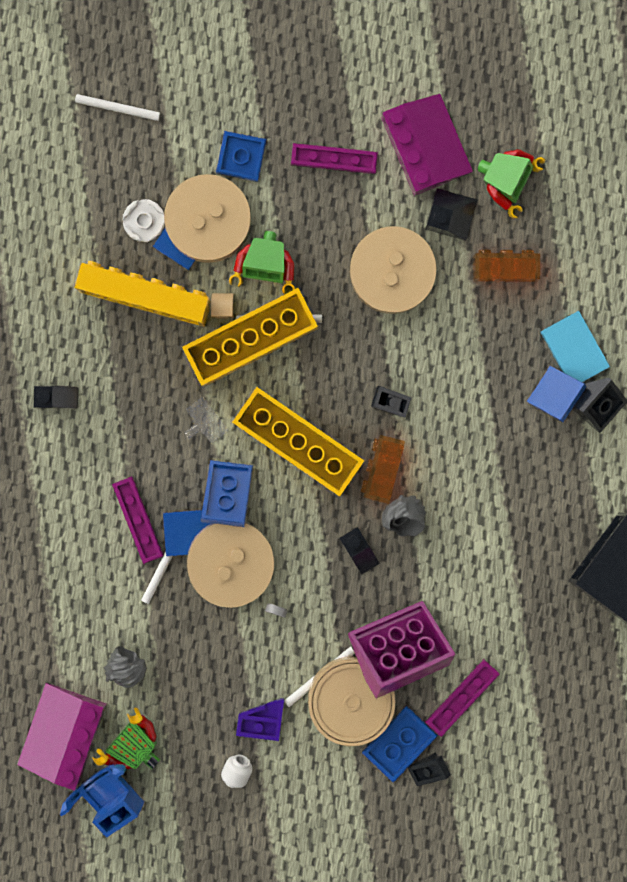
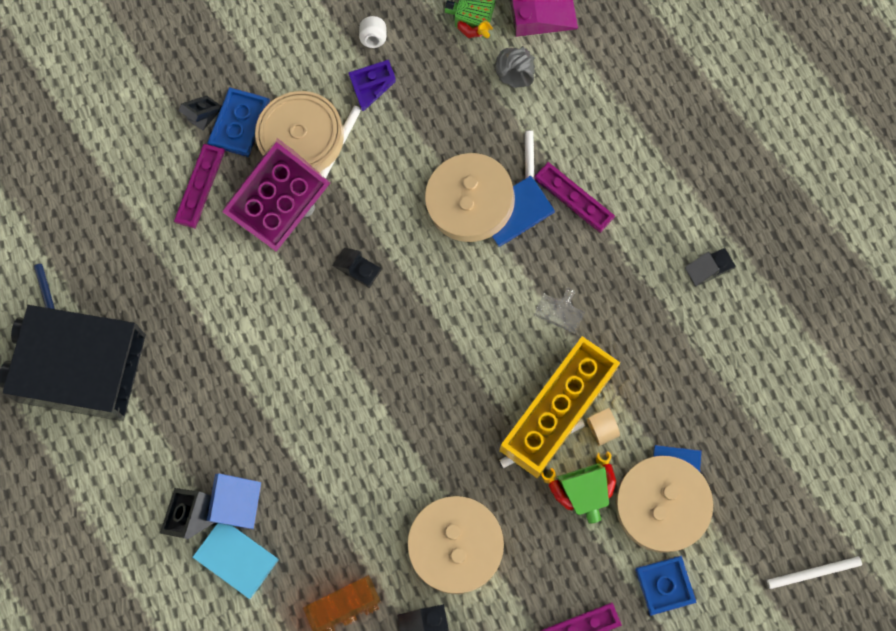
camera: 160 degrees right, 15 degrees down
(140, 226) = (724, 472): white tile -> none
(143, 294) = (684, 395): yellow brick -> none
(227, 493) = (505, 255): blue tile -> none
(276, 610) = (406, 178): light grey tile -> none
(298, 441) = (463, 332): yellow brick -> none
(382, 468) = (370, 348): clear orange brick -> none
(390, 401) = (394, 413): black slope -> none
(404, 516) = (328, 314): dark grey hair -> none

